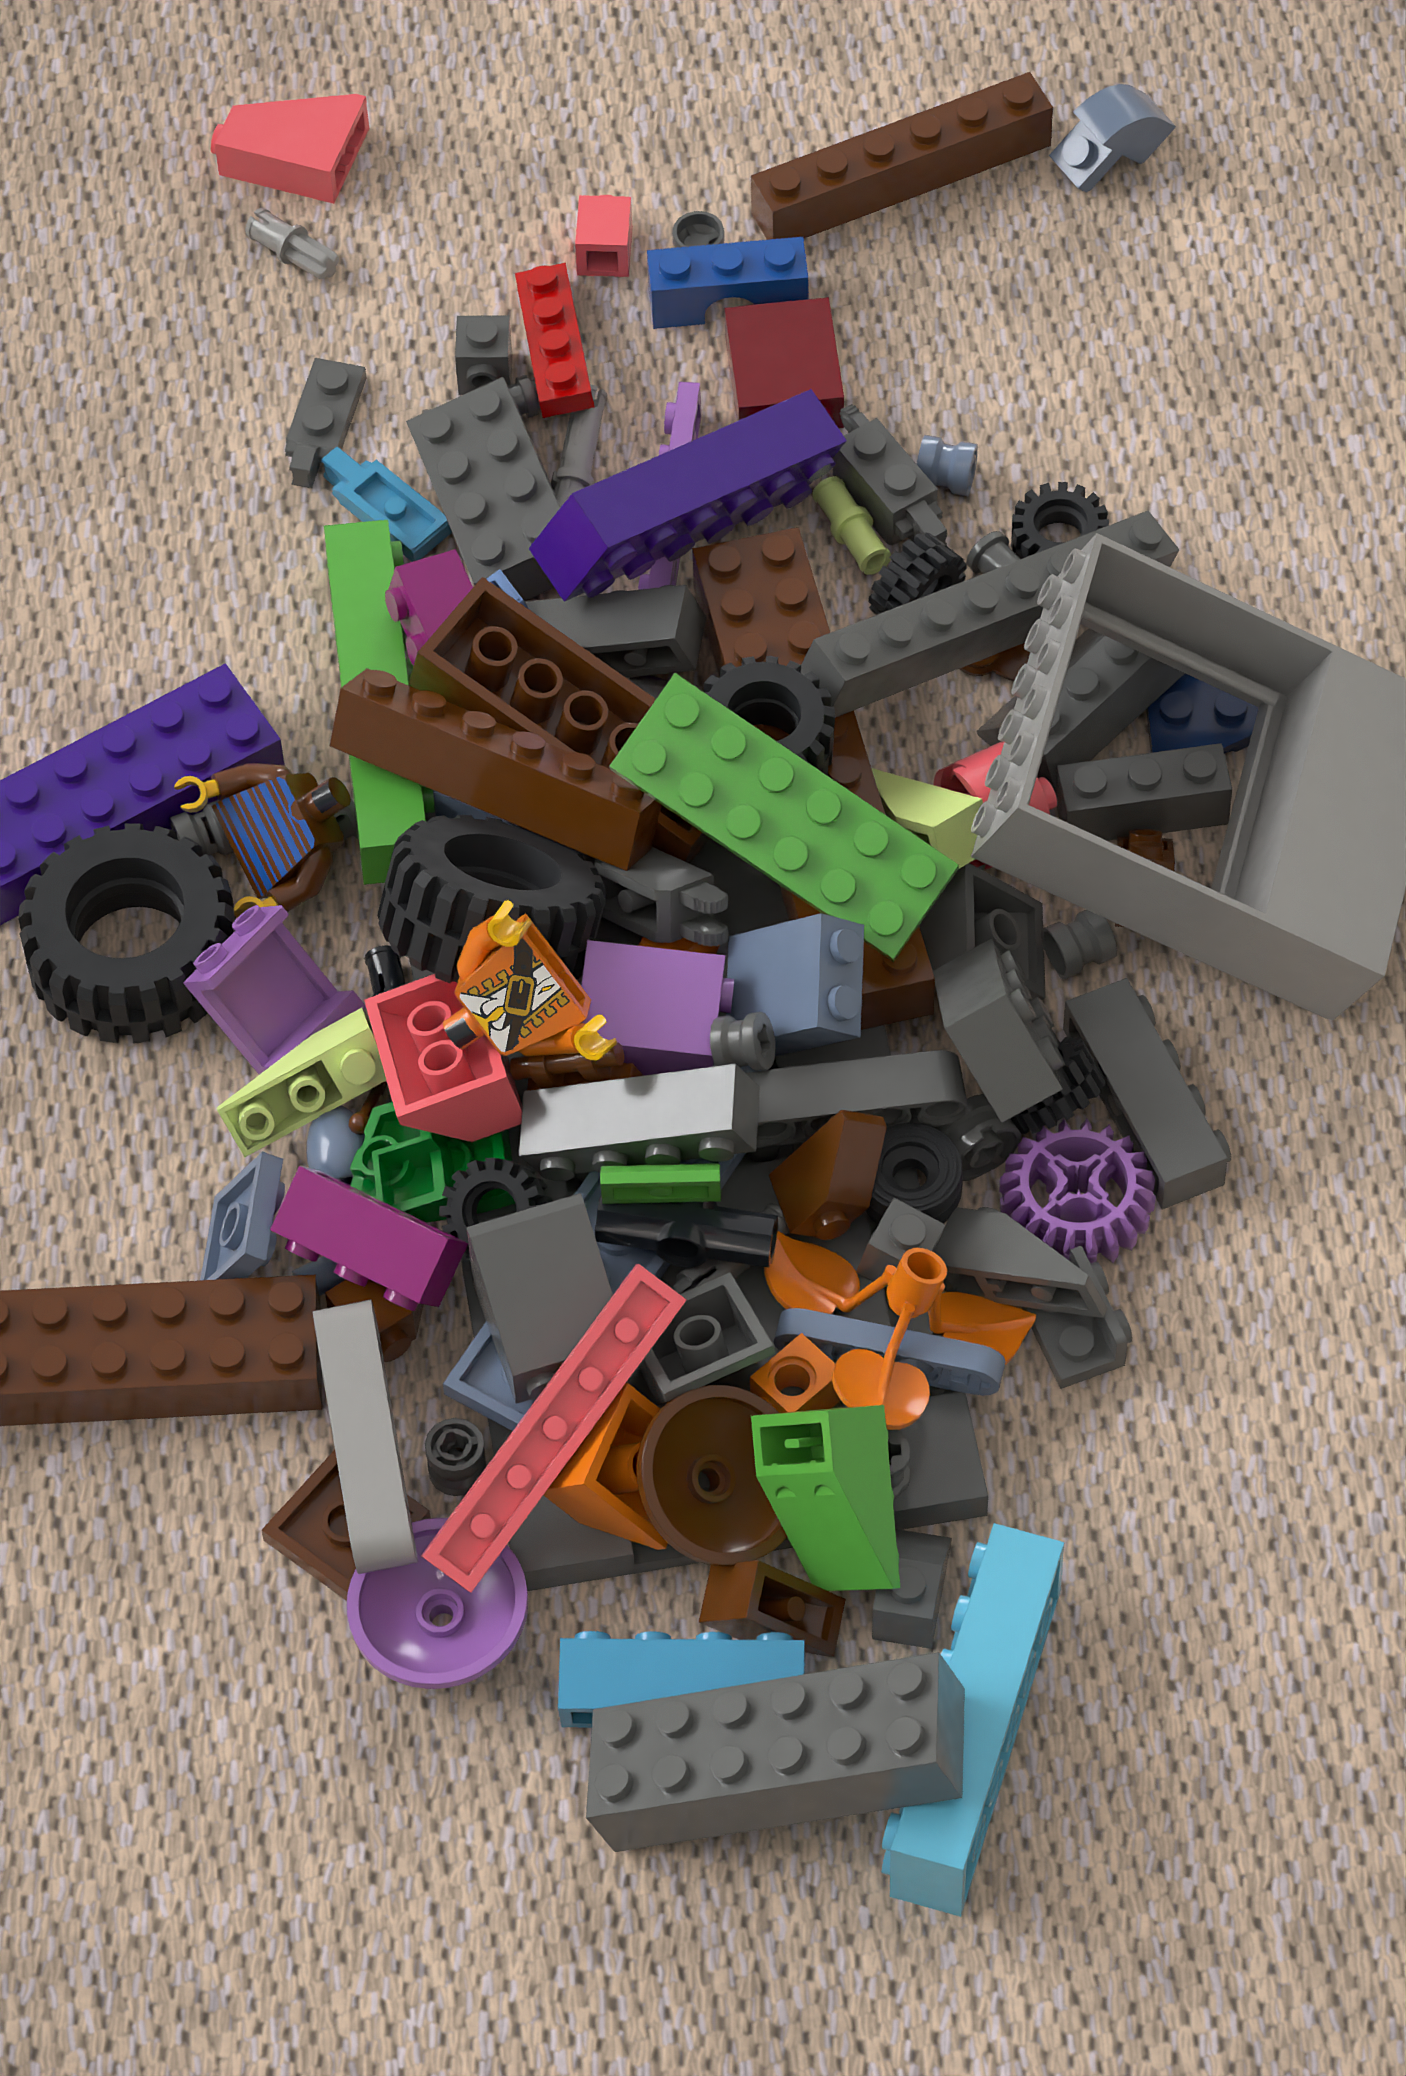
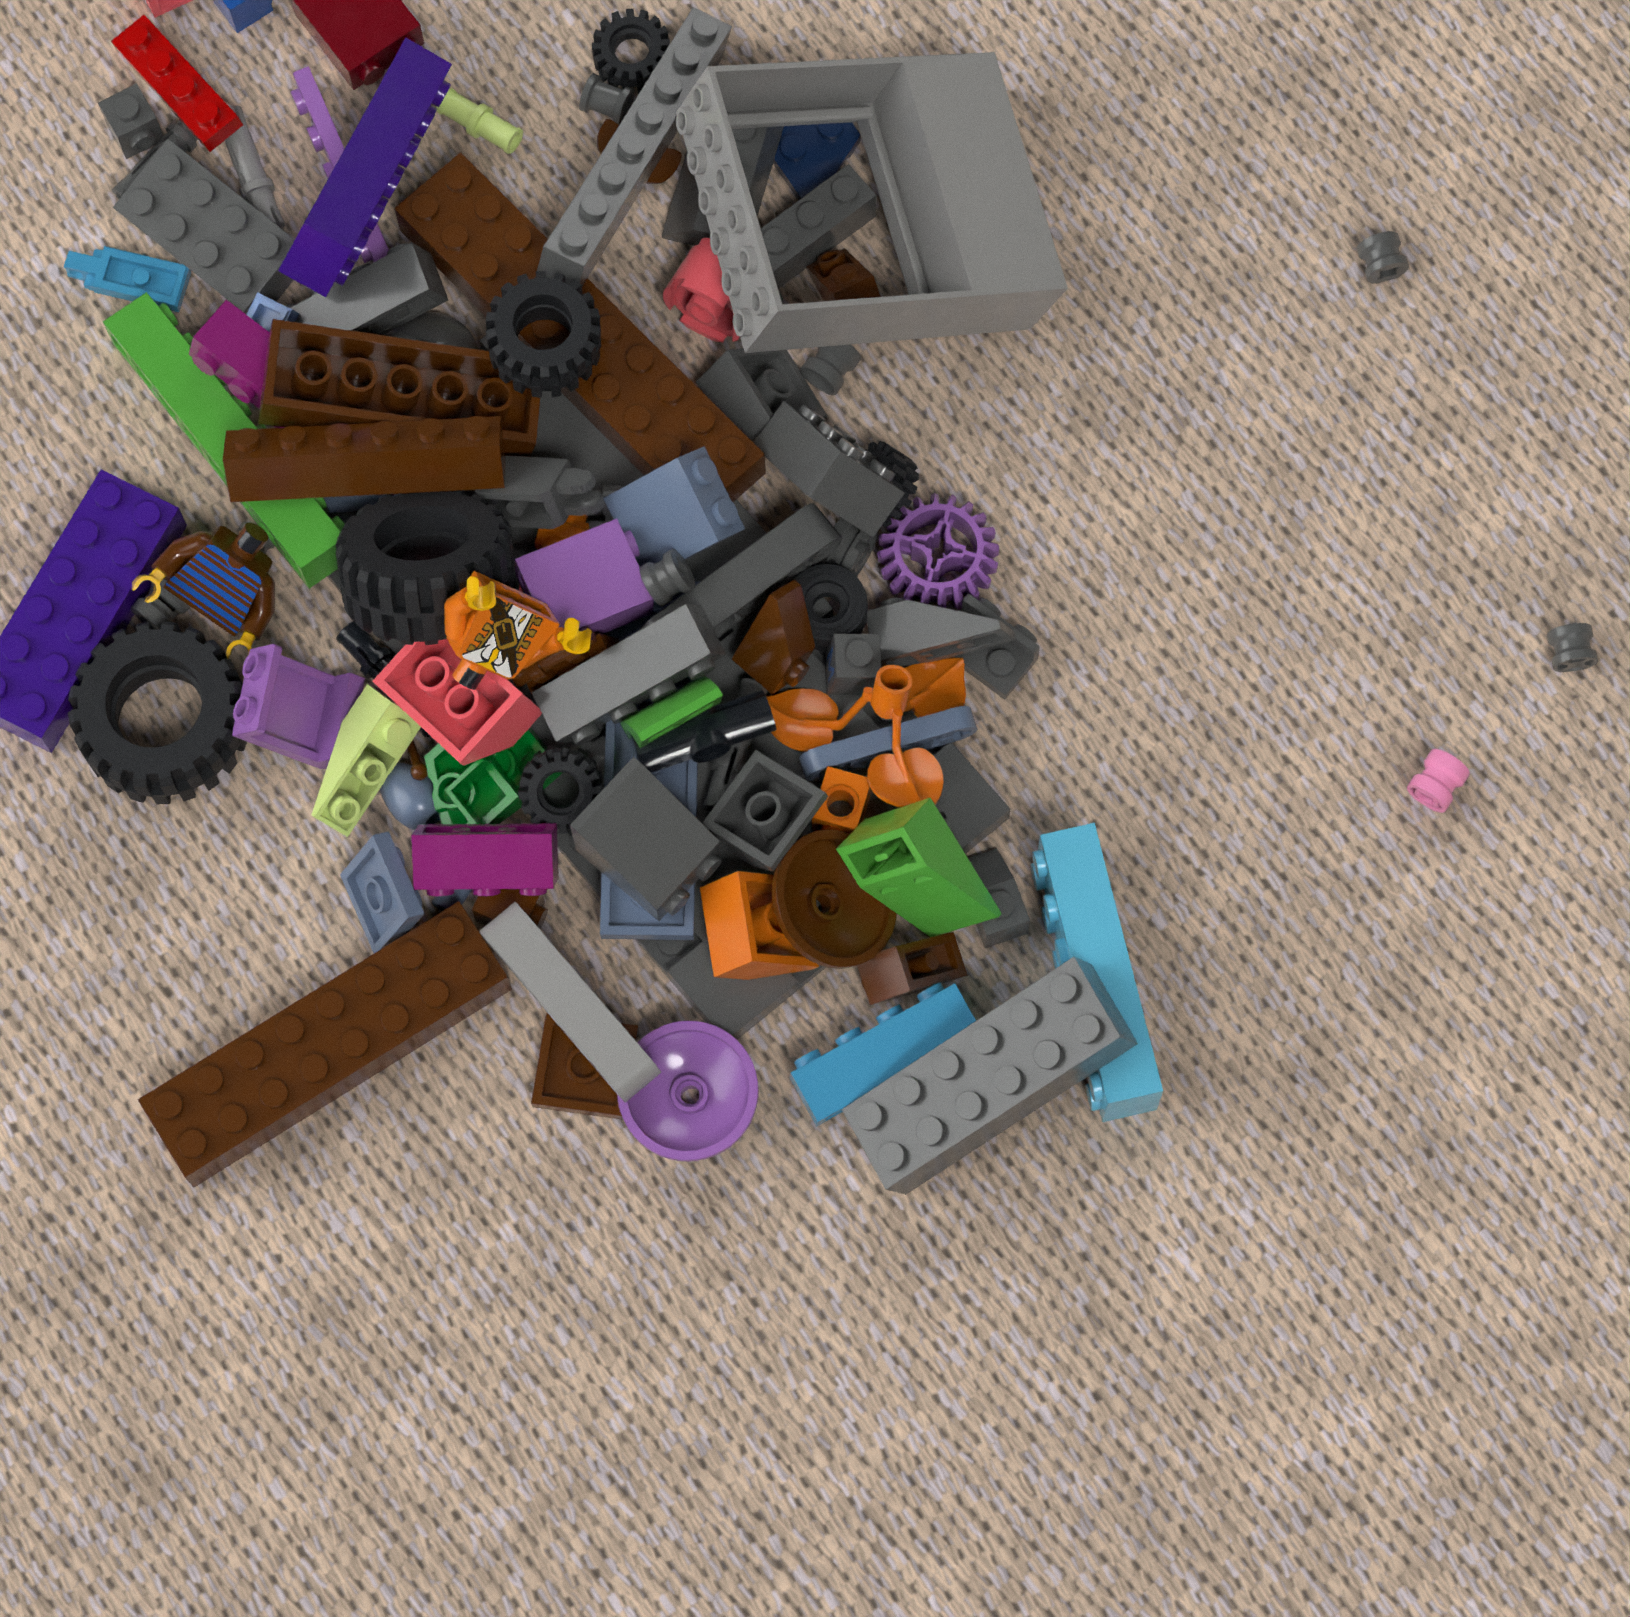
camera: 30 degrees left, 15 degrees up
(322, 416) = (38, 229): dark grey hinge -> none
(456, 1470) = (636, 983): dark grey wheel -> none
(553, 1428) = (706, 931): coral plate -> none
(783, 816) = (601, 394): bright green plate -> none
(886, 481) = (492, 76): dark grey hinge -> none
(916, 572) = (560, 147): black tyre -> none
(931, 813) = (691, 335): yellowish green slope -> none
(948, 464) = (520, 39): sand blue wheel -> none
(1148, 1092) = (942, 451): dark grey brick -> none

